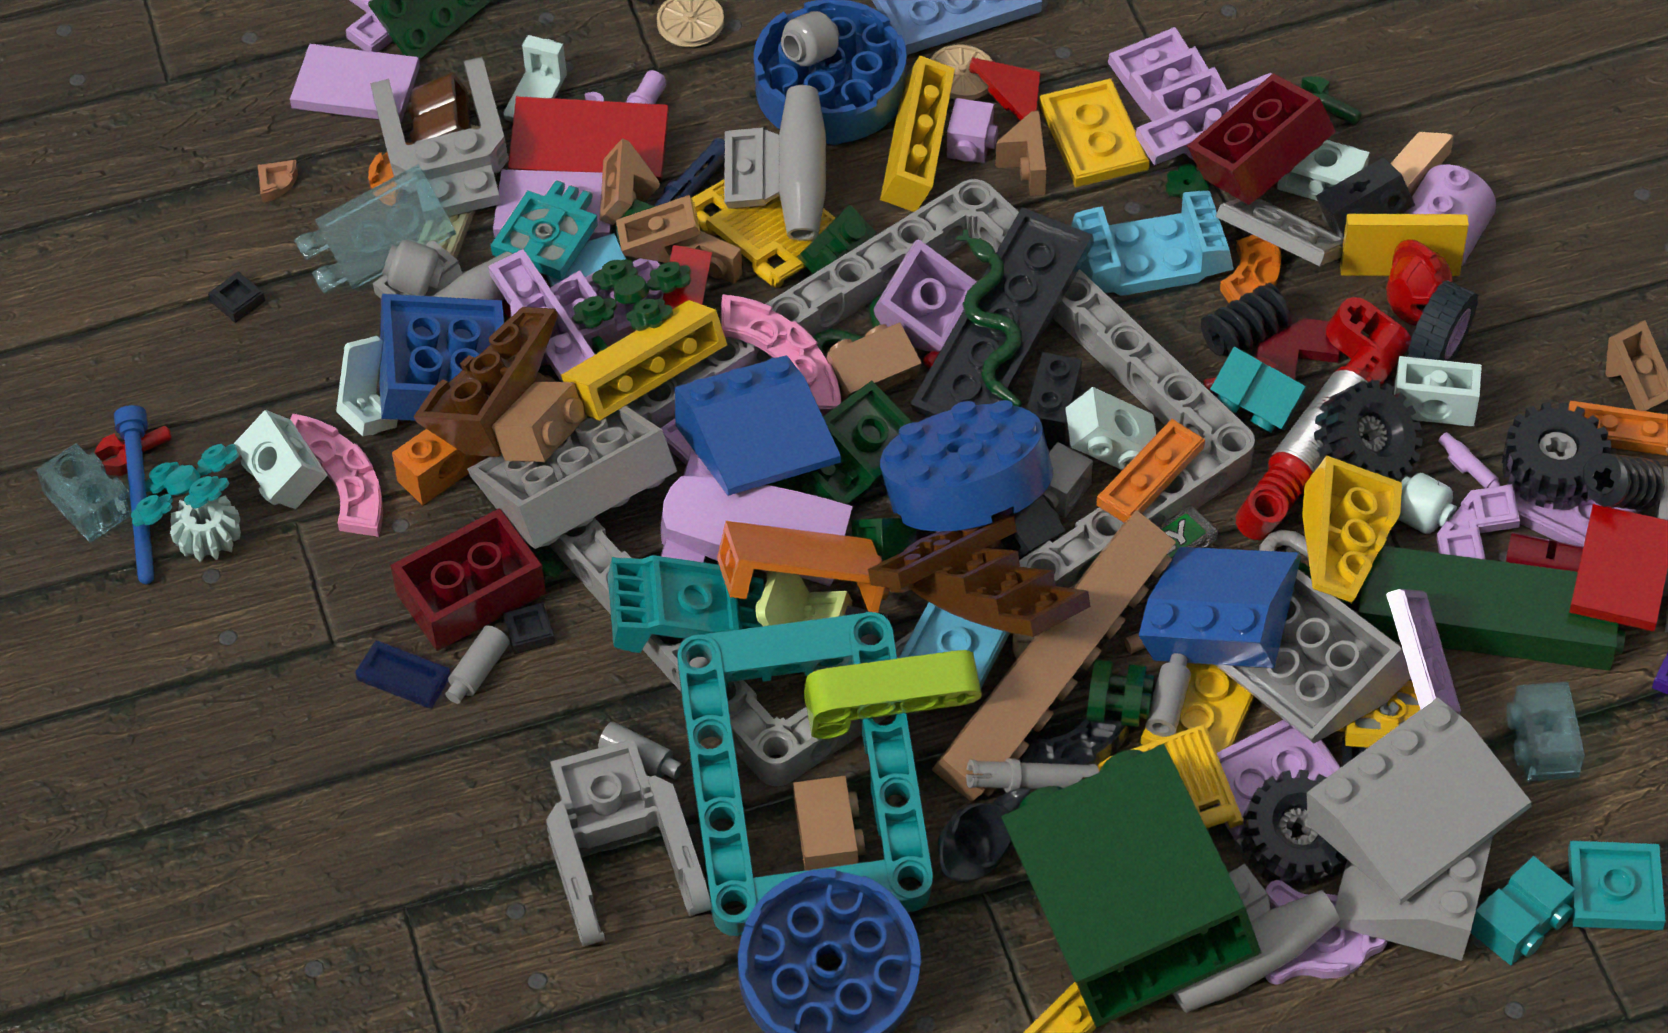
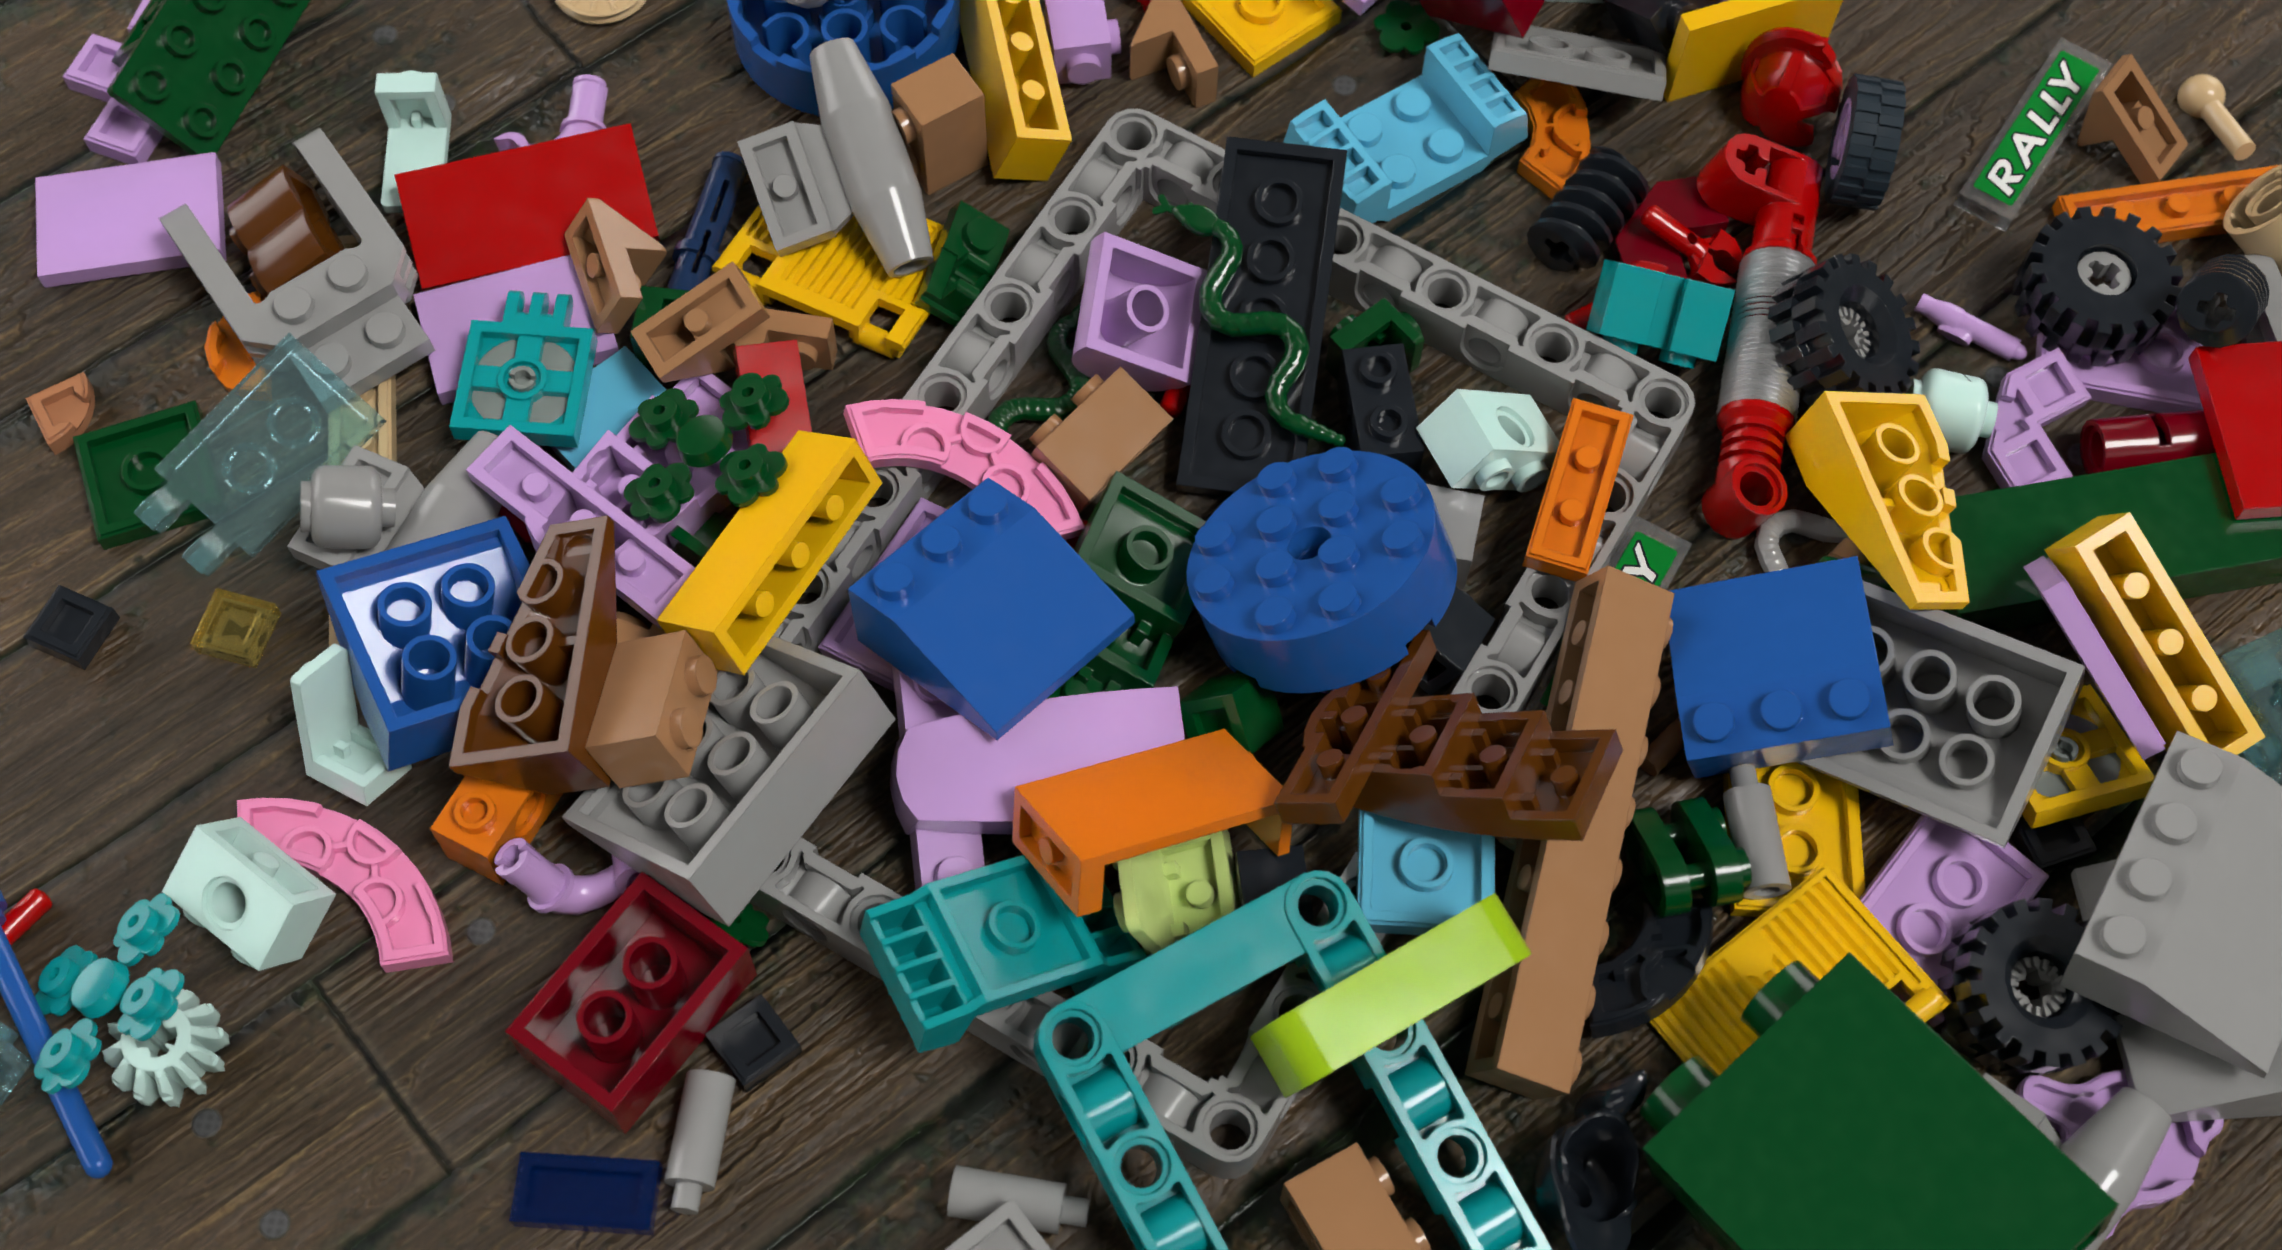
camera: 25 degrees left, 10 degrees up
(296, 216) = (121, 474): none -> dark green tile
(327, 324) = (235, 627): none -> clear yellow tile
(445, 506) = (554, 886): none -> lavender piece
(854, 157) = (941, 122): none -> medium nougat brick
(1018, 775) = (1608, 1053): light grey pin -> none
(1078, 347) = (1375, 327): none -> dark green bracket
(1307, 364) = (1698, 250): none -> red bar
(1439, 389) = (1901, 233): light aqua brick -> none
(1469, 655) = (2153, 634): none -> yellow brick
(1567, 363) = (2032, 134): none -> tile

